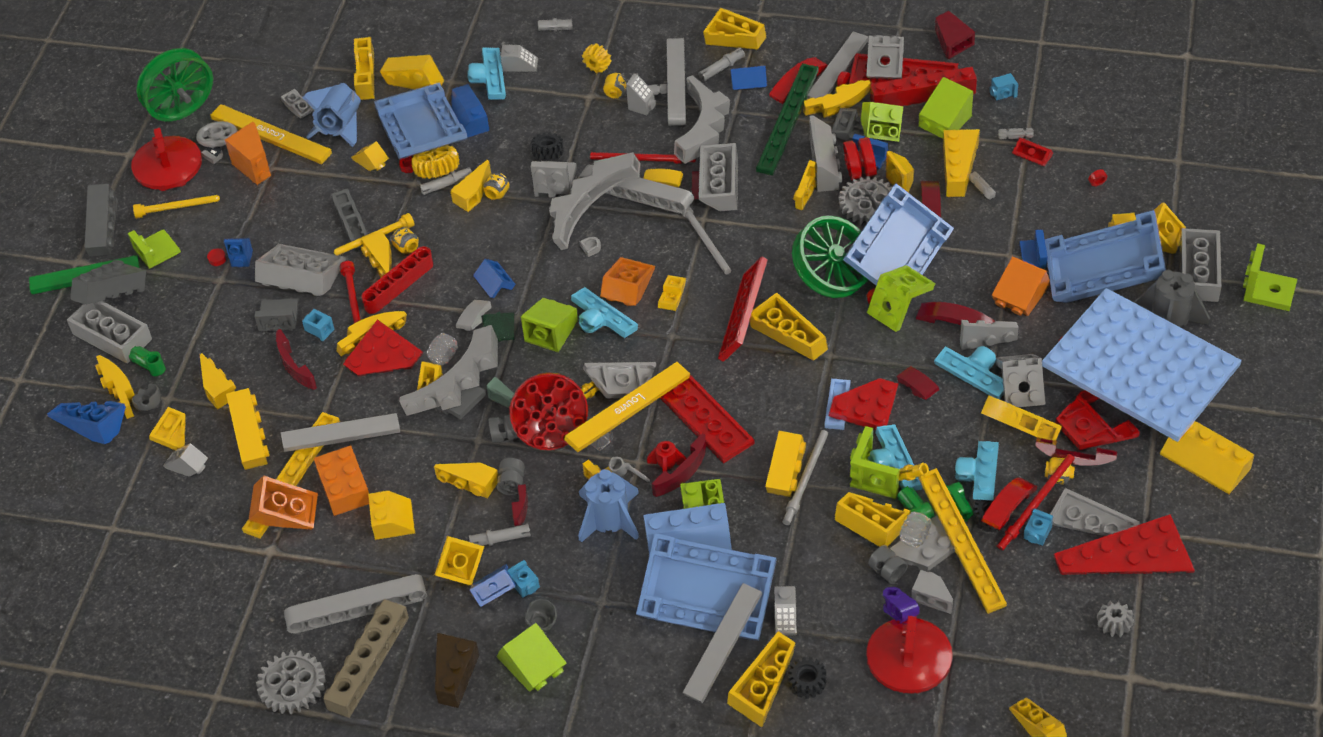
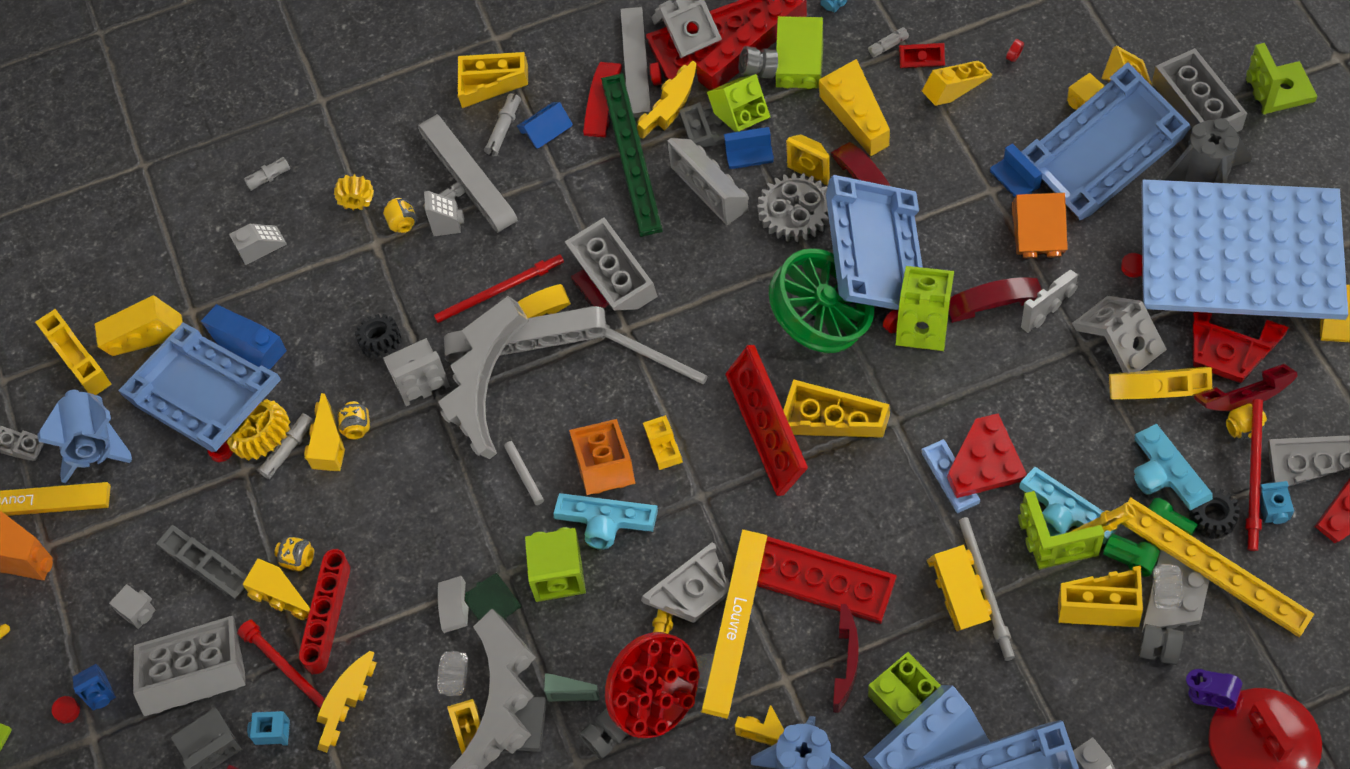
camera: 30 degrees left, 10 degrees up
(293, 221) = (133, 606): none -> light grey brick
(371, 157) = (167, 465): yellow slope -> none
(382, 352) = (379, 719): red plate -> none
(405, 221) = (276, 527): yellow piece -> none
(489, 72) = (235, 277): medium azure plate -> none
(493, 277) = (439, 542): blue panel -> none
(574, 267) = (524, 473): none -> light grey bar
(590, 245) = (522, 434): light grey tile -> none
(620, 468) = (788, 708): light grey plant -> none
(666, 456) = (818, 657): red brick -> none
(710, 122) = (547, 203): light grey arch -> none
(806, 186) = (716, 225): yellow wing -> none
(859, 158) = (754, 162): red wheel -> none
(912, 101) = (762, 62): none -> dark grey wheel
(918, 382) = (1018, 399): dark red slope -> none
(932, 592) = (1230, 648): light grey slope -> none
(973, 369) = (1065, 351): medium azure plate -> none
(982, 185) = (902, 123): light grey axle -> none
(1007, 501) = (1230, 492): red slope -> none
(1036, 176) = (952, 82): none -> yellow slope

